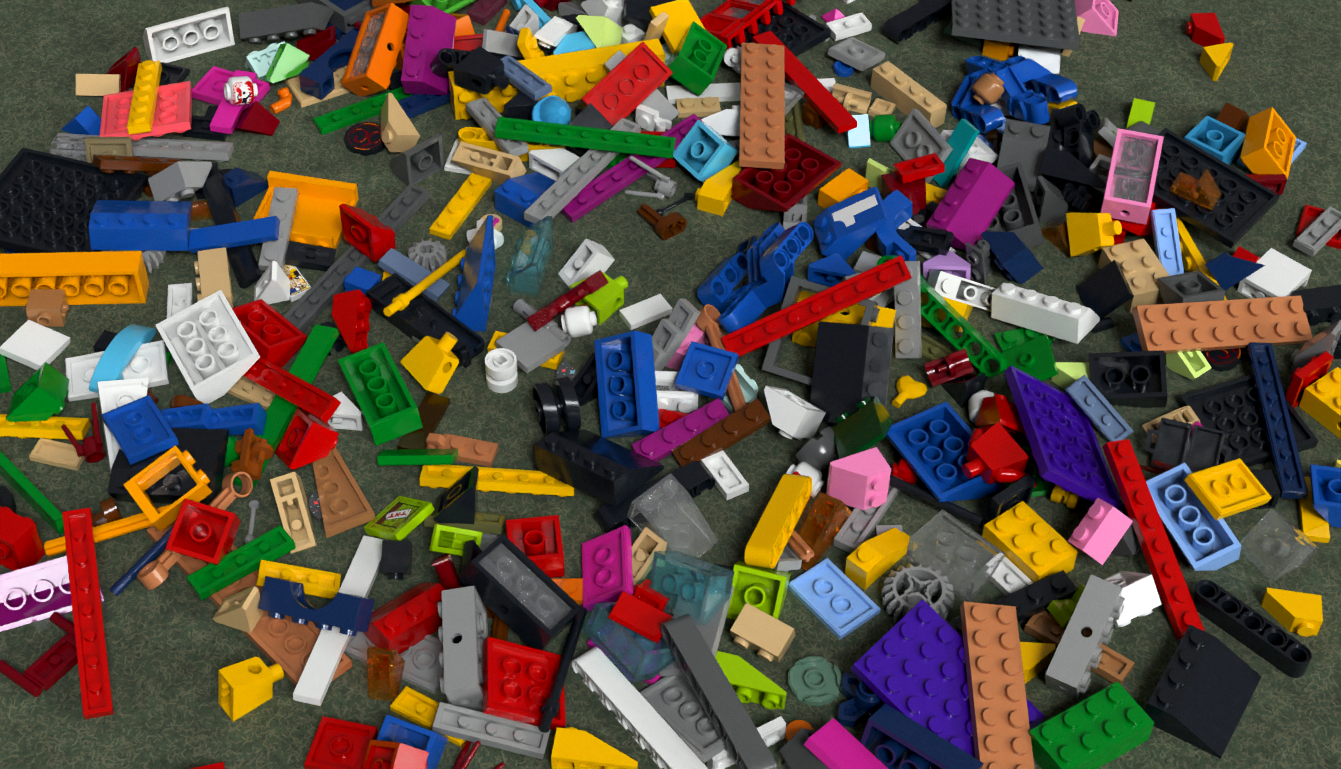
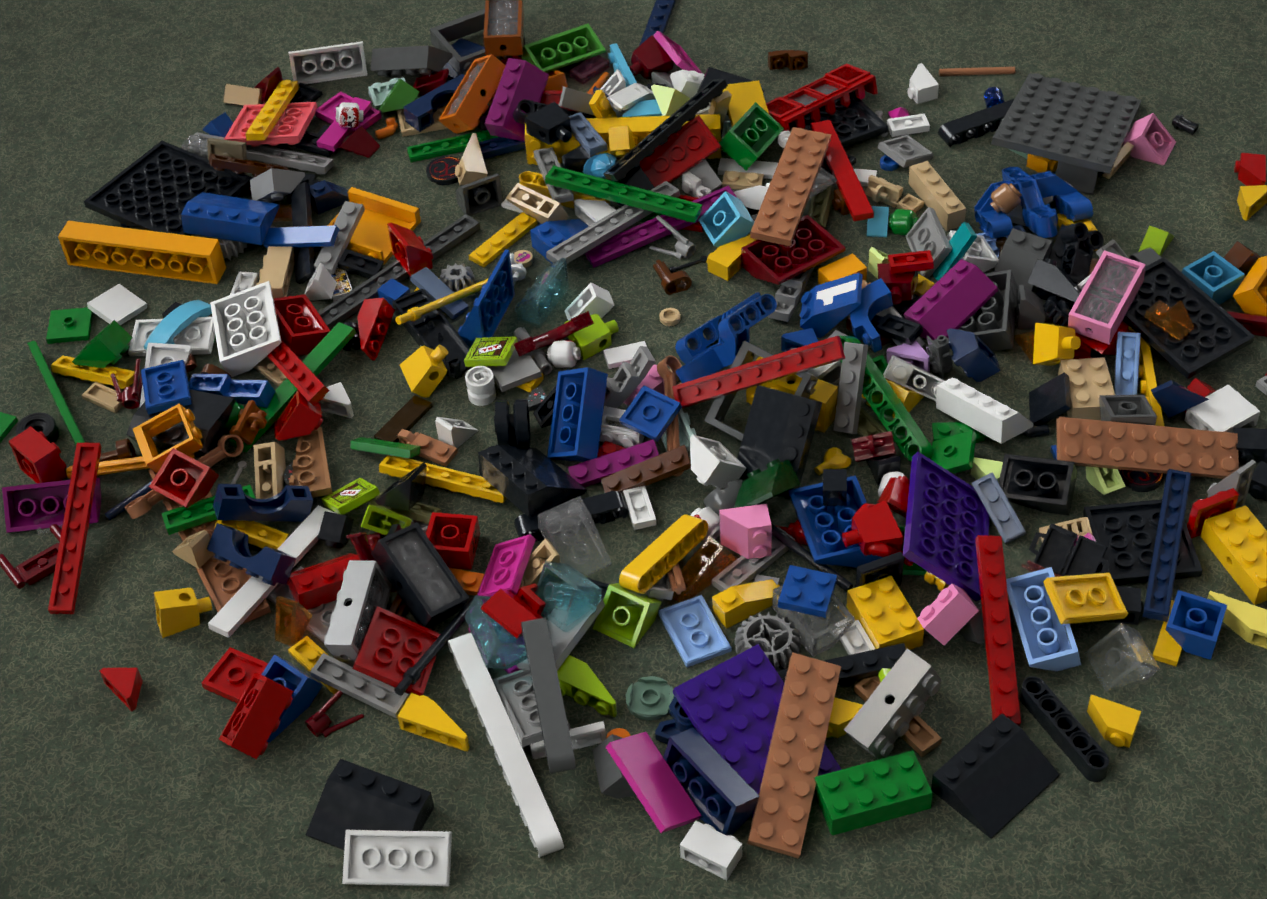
camera: 20 degrees right, 0 degrees up
(47, 307) = (137, 275): medium nougat head -> none
(334, 540) = (289, 505): none -> dark blue arch
(380, 393) = (372, 389): green brick -> none
(488, 426) = (453, 431): none -> white slope
(502, 331) = (490, 351): none -> lime tile
(567, 84) = (620, 141): none -> yellow slope
(611, 63) = (666, 129): none -> black plate
(676, 263) = (669, 317): none -> tan tile
(762, 633) = (616, 649): tan brick -> none
(934, 417) = (834, 487): none -> black brick
(947, 533) = (807, 591): none -> blue plate
(1139, 595) = (960, 678): white slope -> none

